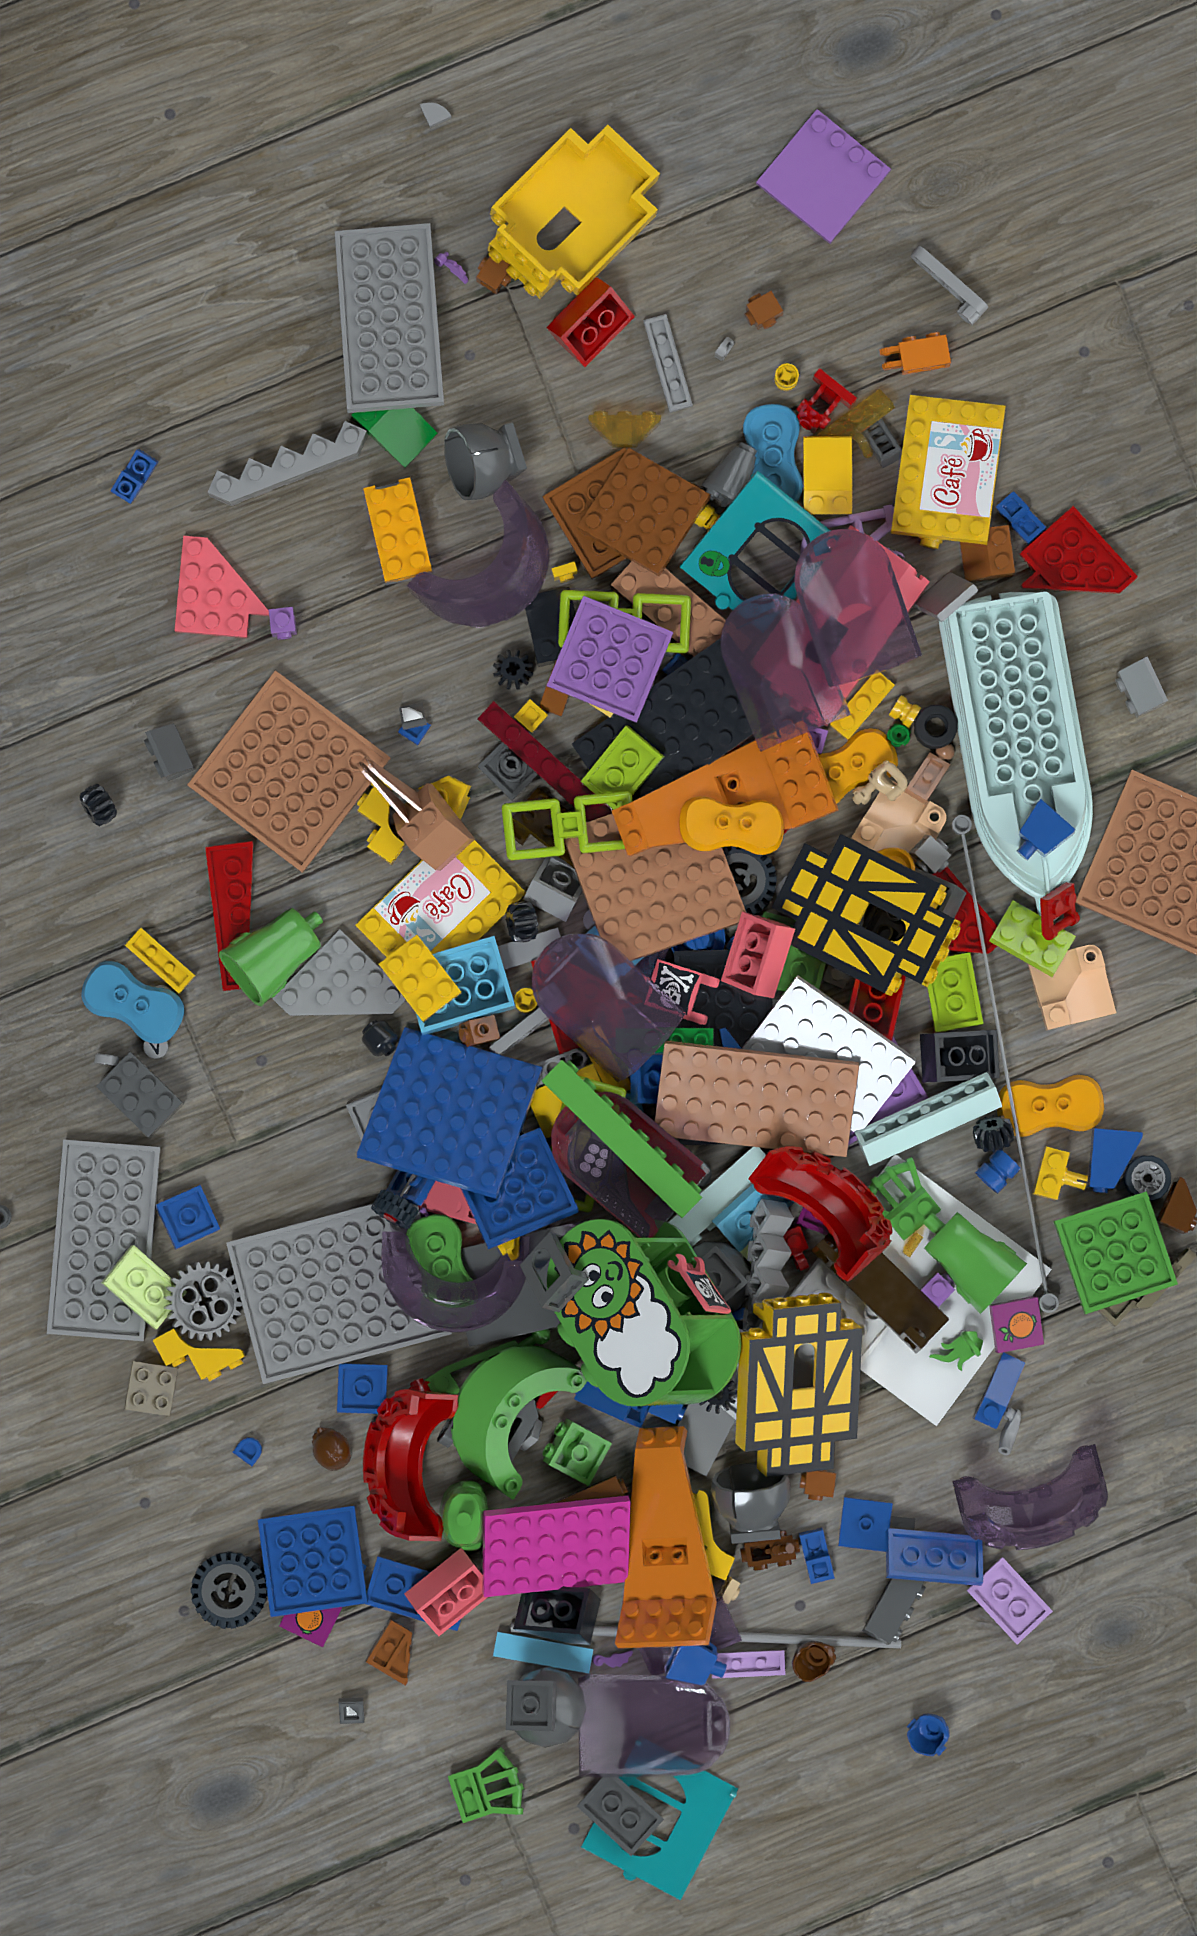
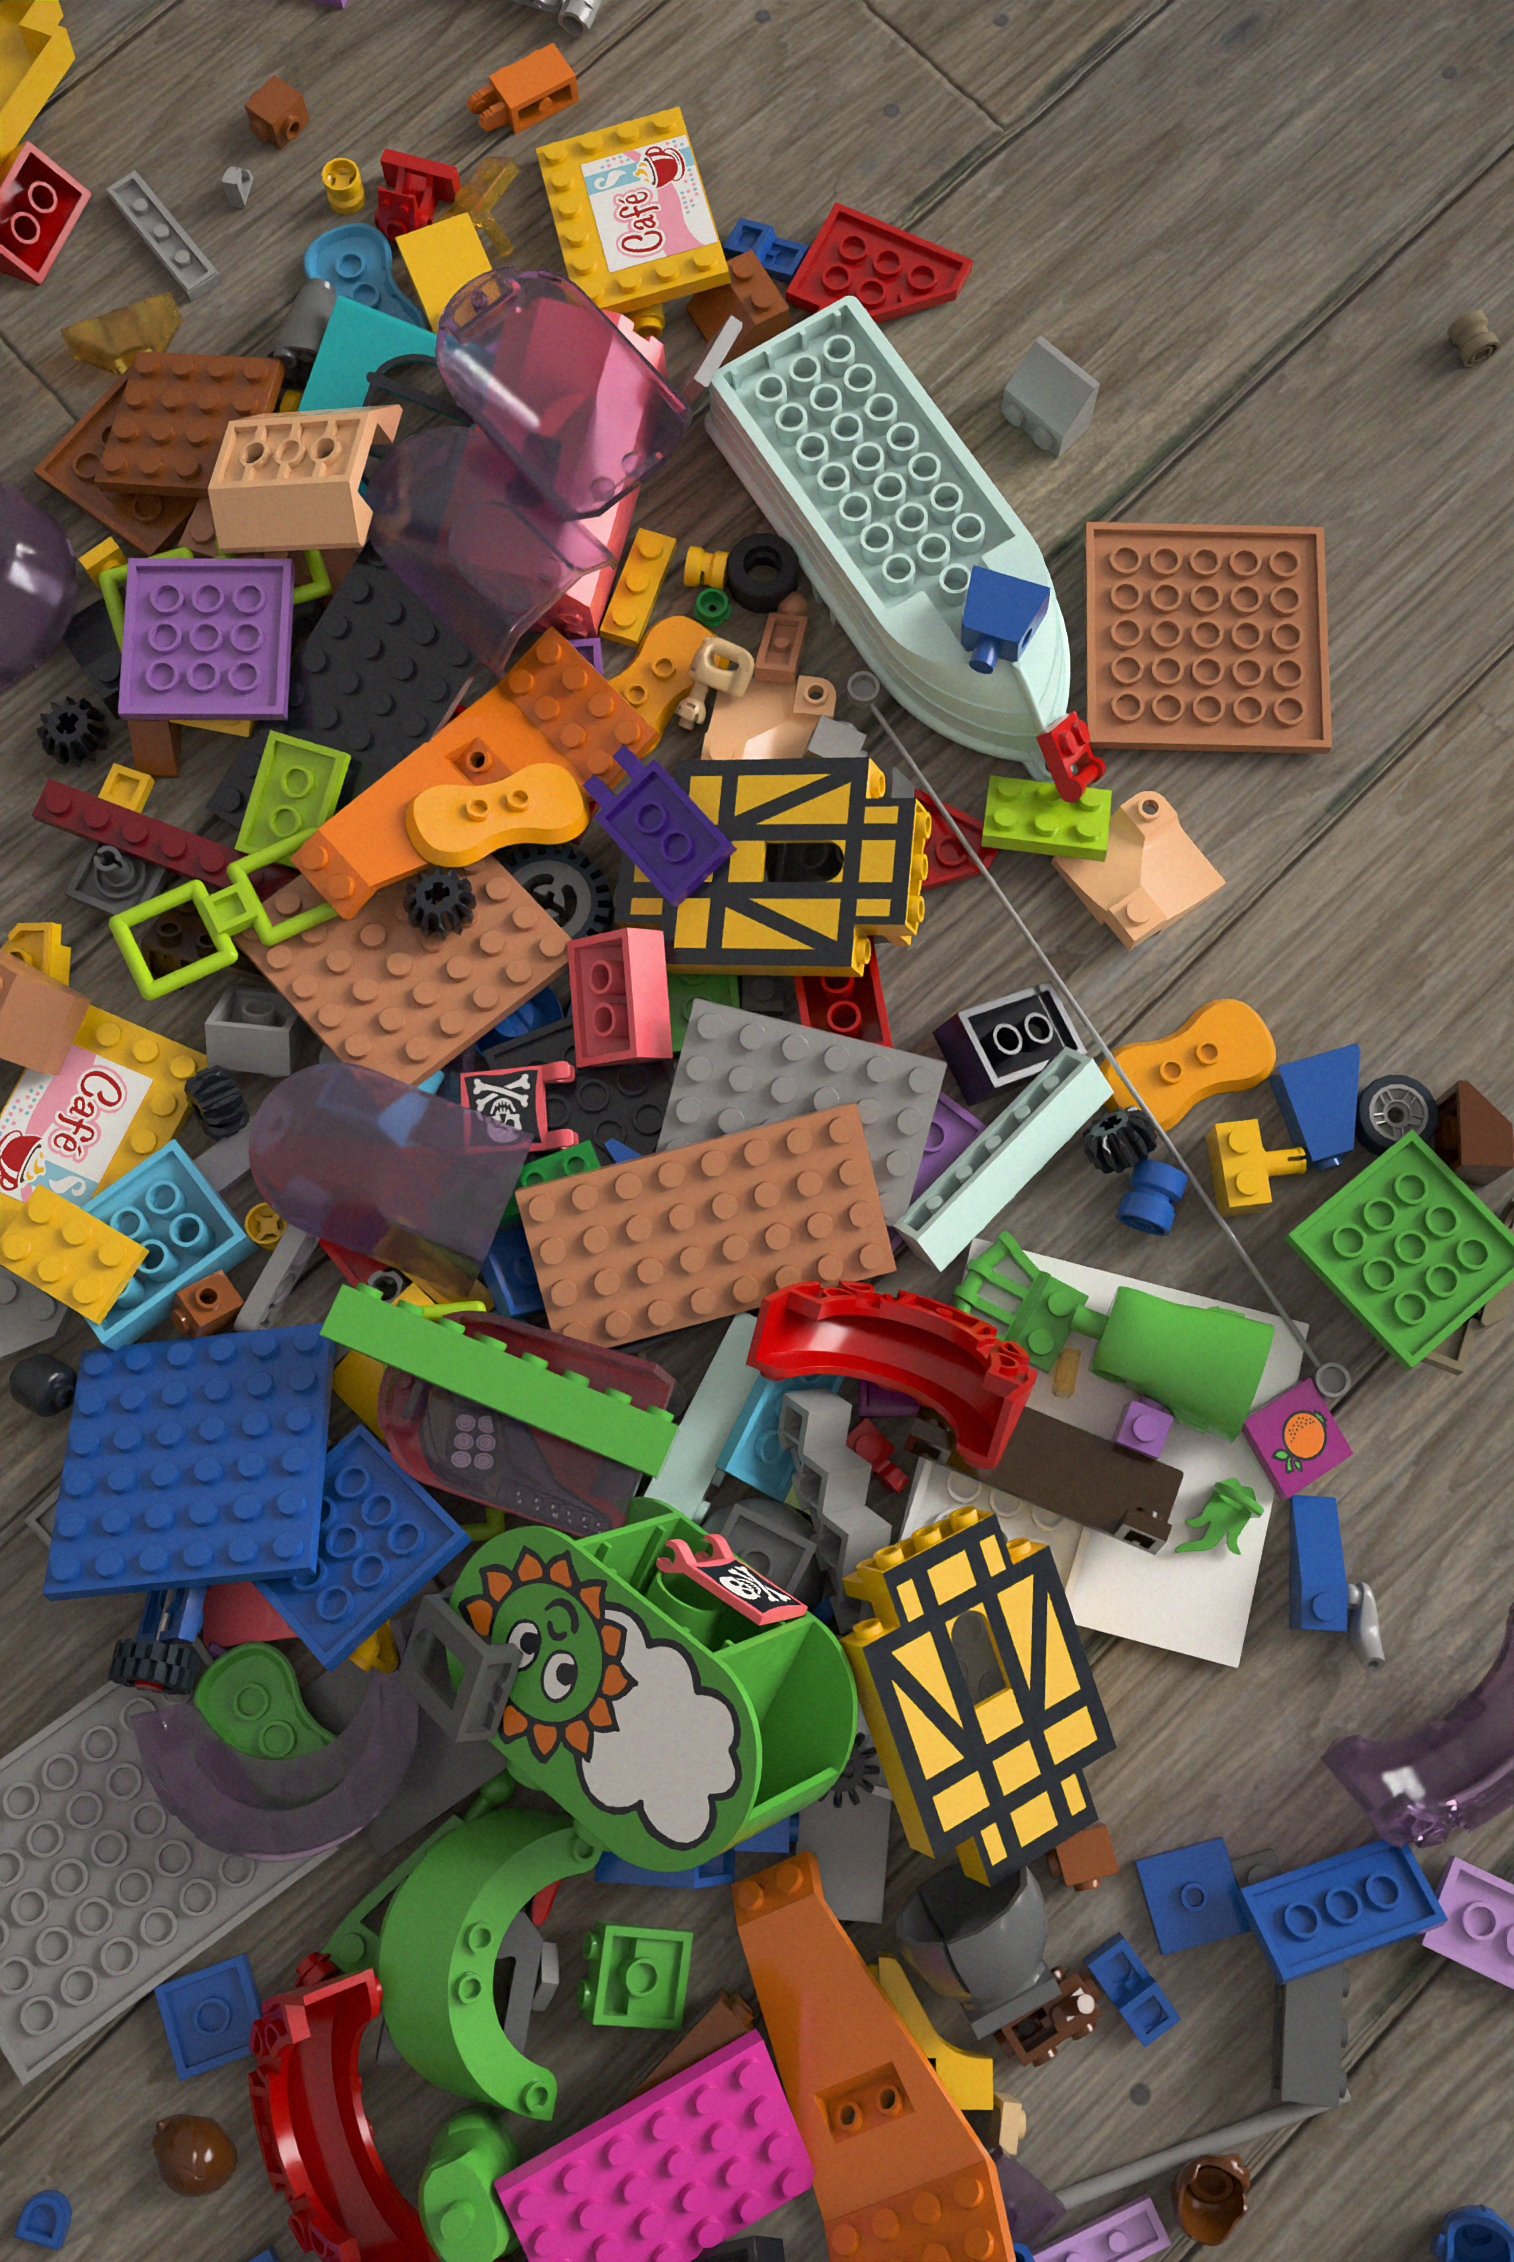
camera: 20 degrees left, 10 degrees down
(676, 859) = (424, 899): none -> black gear
(685, 598) = (288, 492): none -> light nougat slope
(816, 867) = (660, 828): none -> dark purple tile
(890, 452) = (531, 231): dark grey slope -> none
(955, 995) = (962, 951): lime plate -> none

